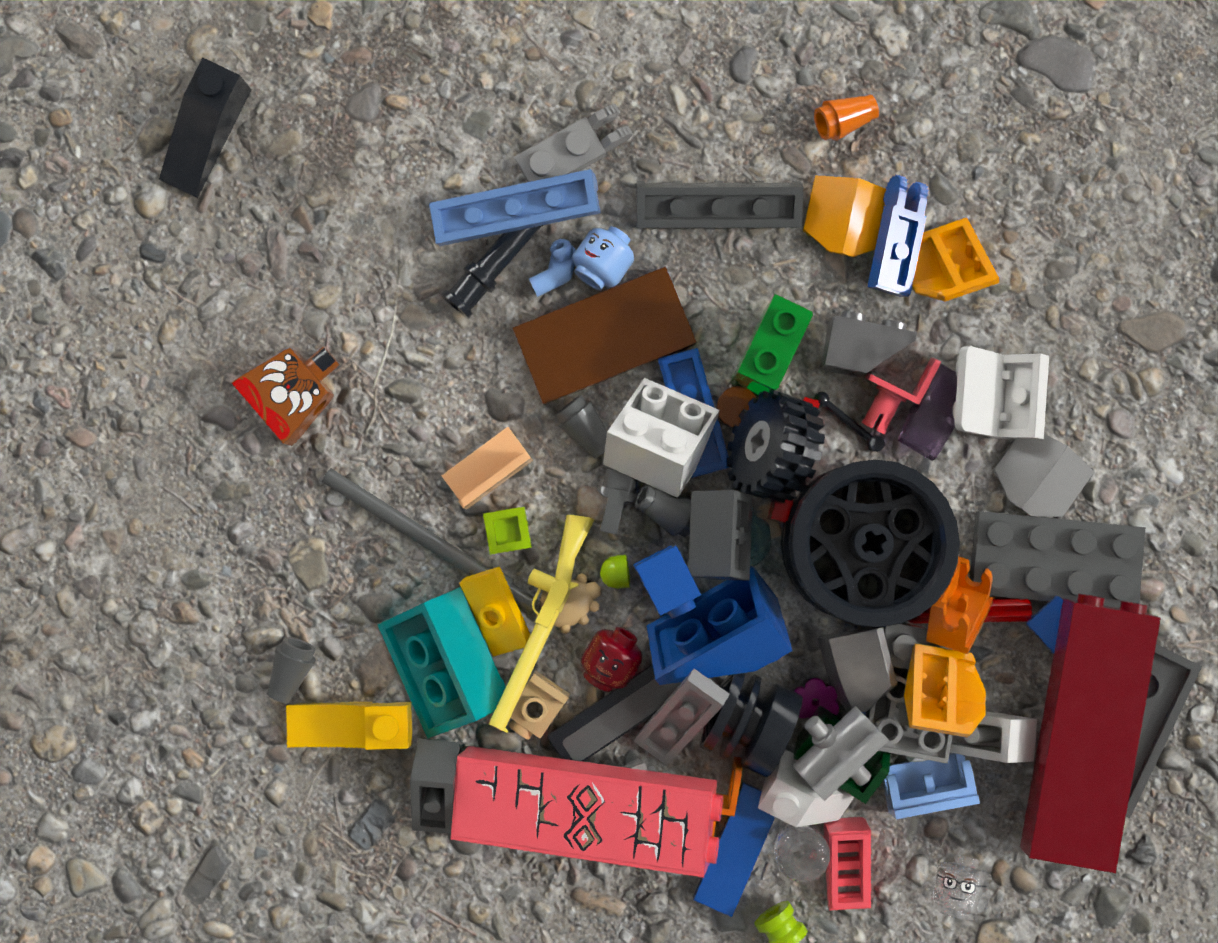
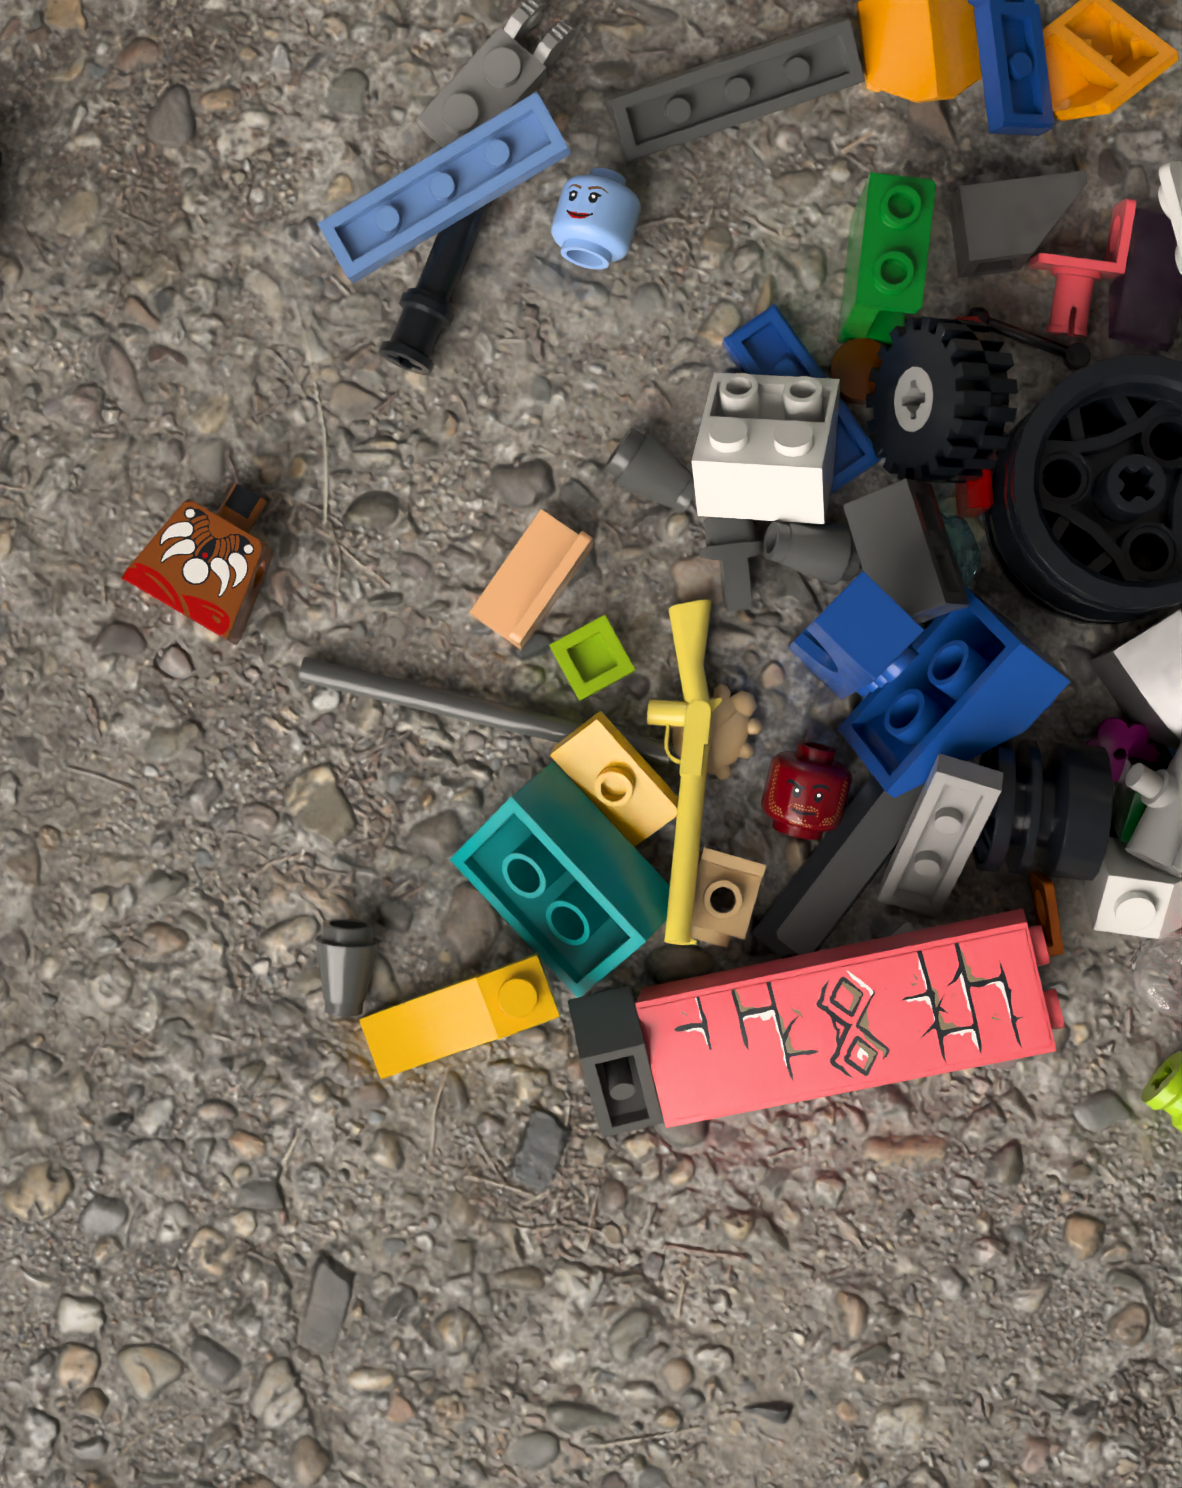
camera: 20 degrees left, 0 degrees up
(559, 268) = (536, 259): light blue arm -> none
(604, 335) = (634, 332): reddish brown tile -> none
(615, 572) = (769, 665): lime hinge -> none
(737, 853) = (1086, 996): blue tile -> none

